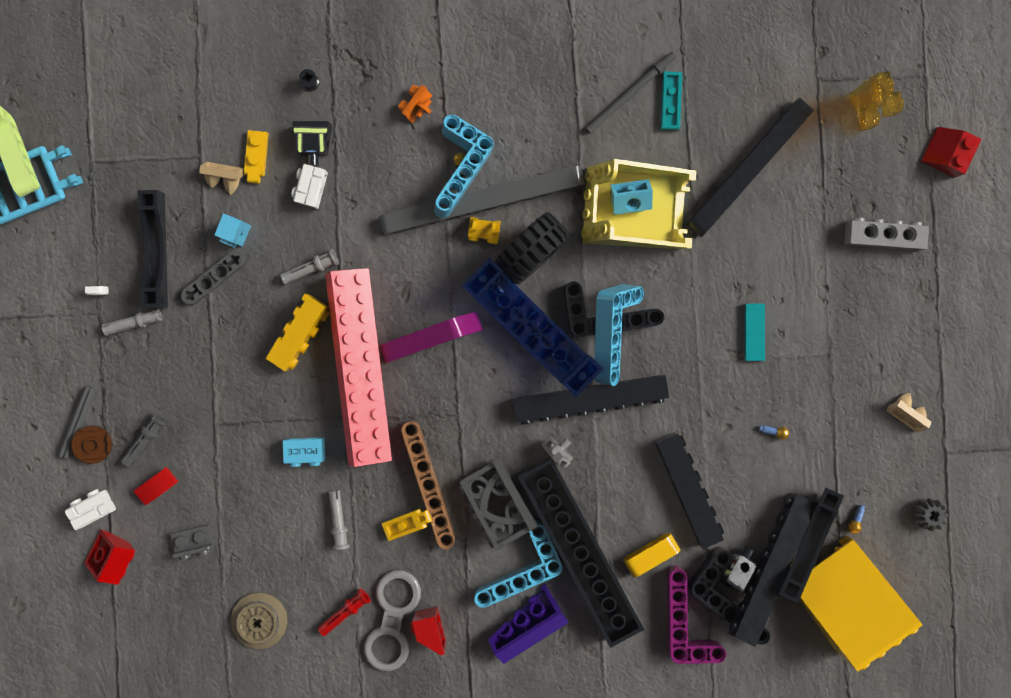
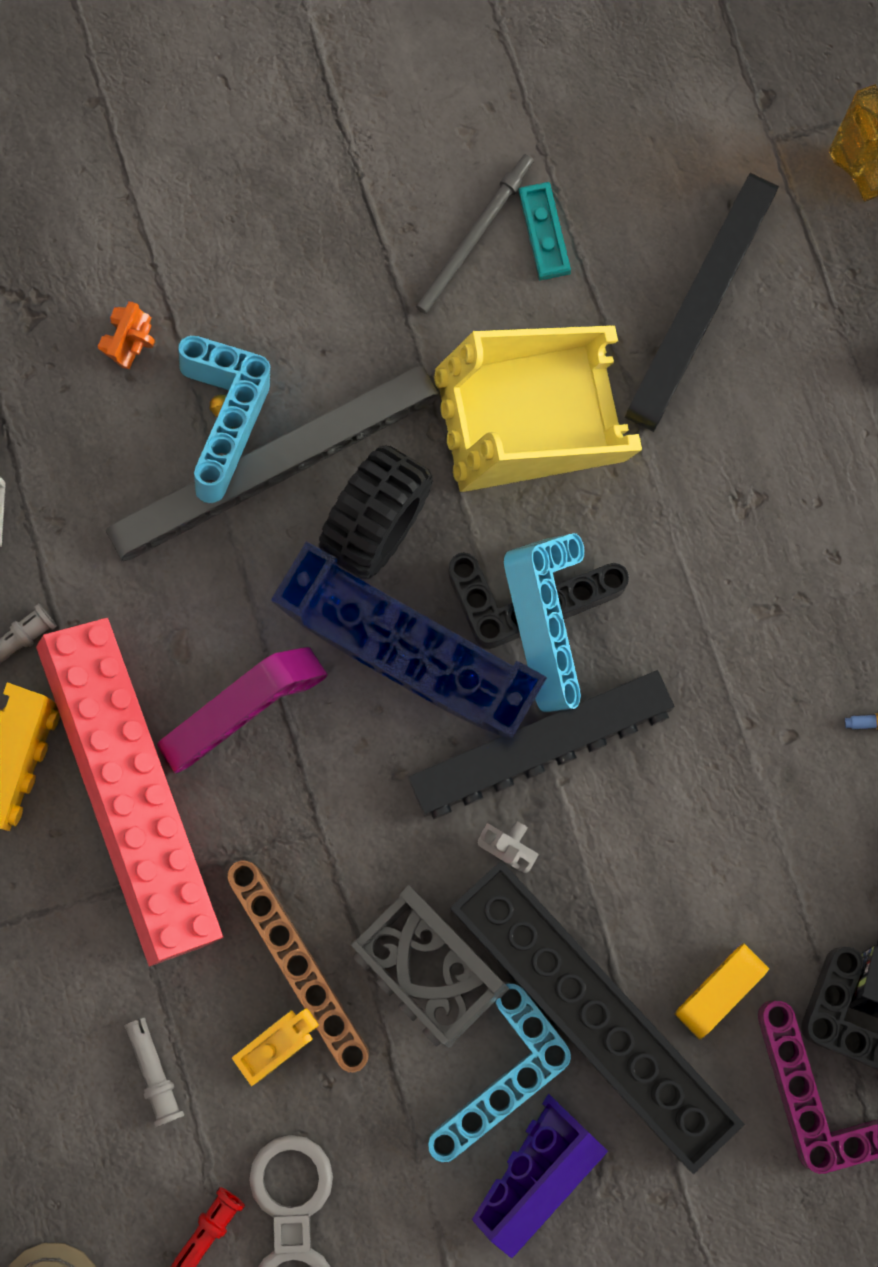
camera: 10 degrees left, 10 degrees down
(304, 451) = (65, 962): medium azure brick -> none
(428, 629) = (361, 1227): red slope -> none
(484, 229) = (287, 508): yellow piece -> none
(631, 197) = (502, 390): medium azure brick -> none
(689, 490) = (755, 859): black brick -> none
(754, 332) = (788, 564): teal tile -> none

